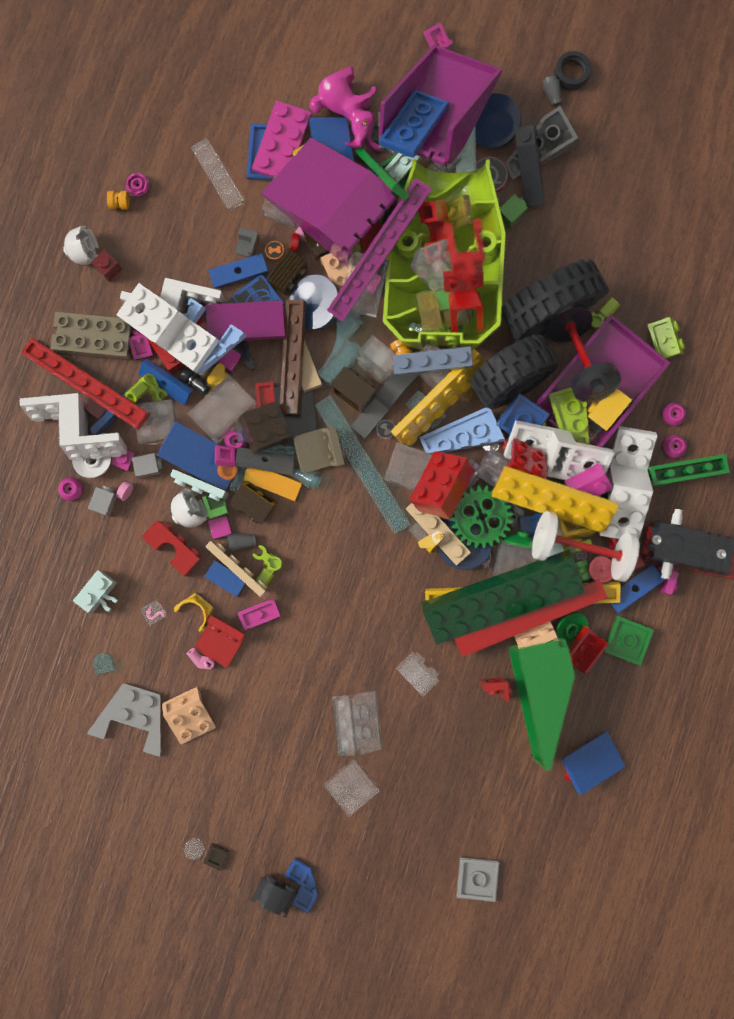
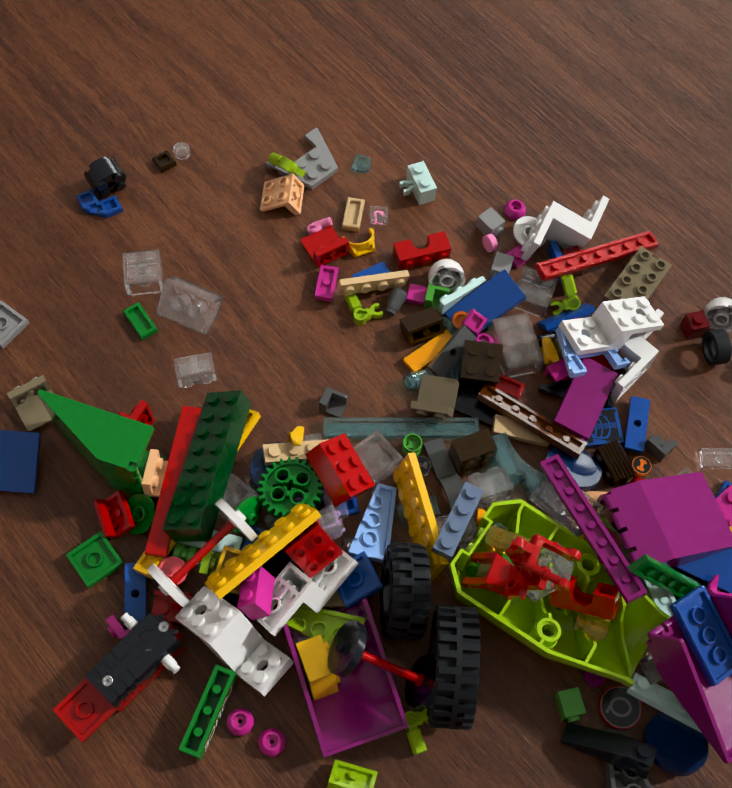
camera: 120 degrees right, 20 degrees down
(121, 235) = (716, 347): none -> black tyre
(158, 728) = (286, 164): none -> lime bar
(167, 636) = (353, 214): none -> tan tile
(374, 535) = (333, 402): none -> dark grey panel
(376, 443) = (413, 442): none -> bright green wheel
(398, 757) = (140, 321): none -> green tile
(533, 787) = (29, 404): none -> dark tan bracket

